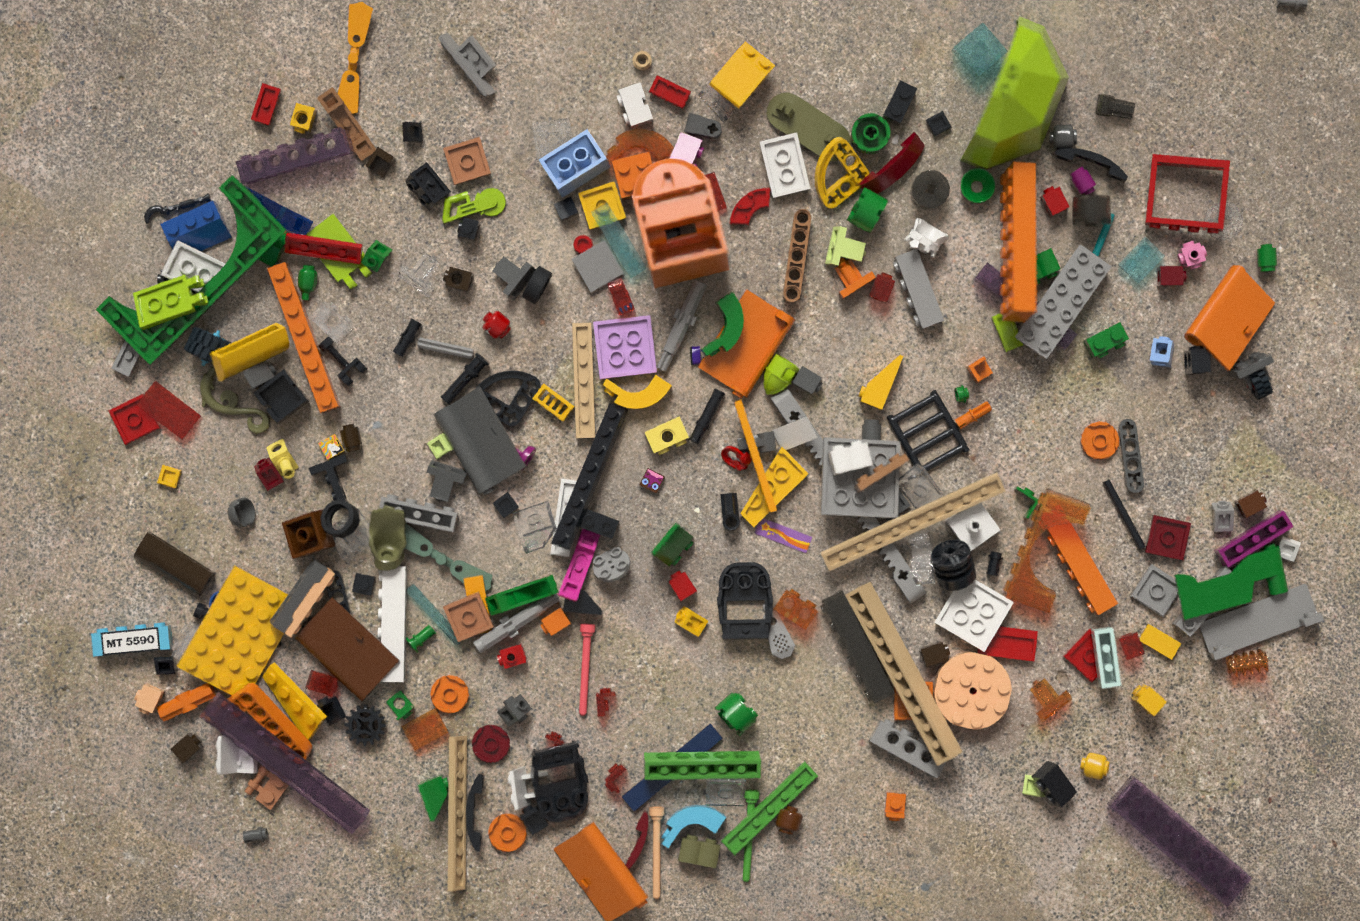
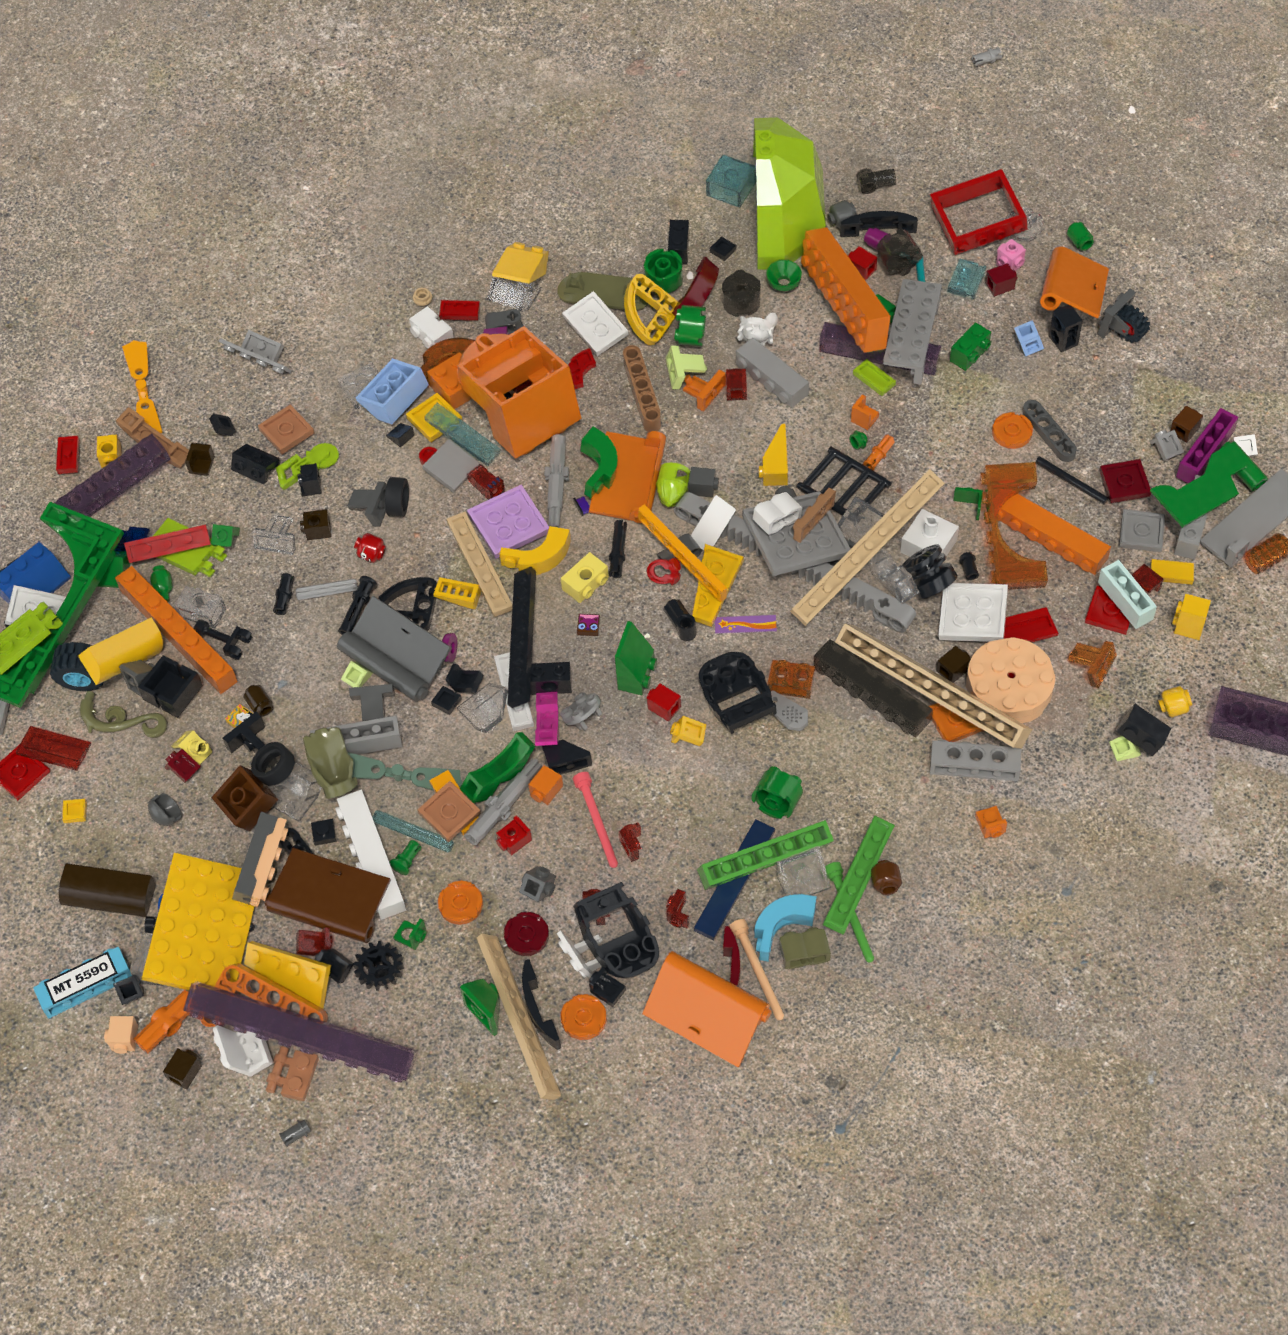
camera: 15 degrees left, 30 degrees down
(425, 729) = (447, 945): clear orange plate -> none
(527, 492) = (463, 680): none -> black bracket

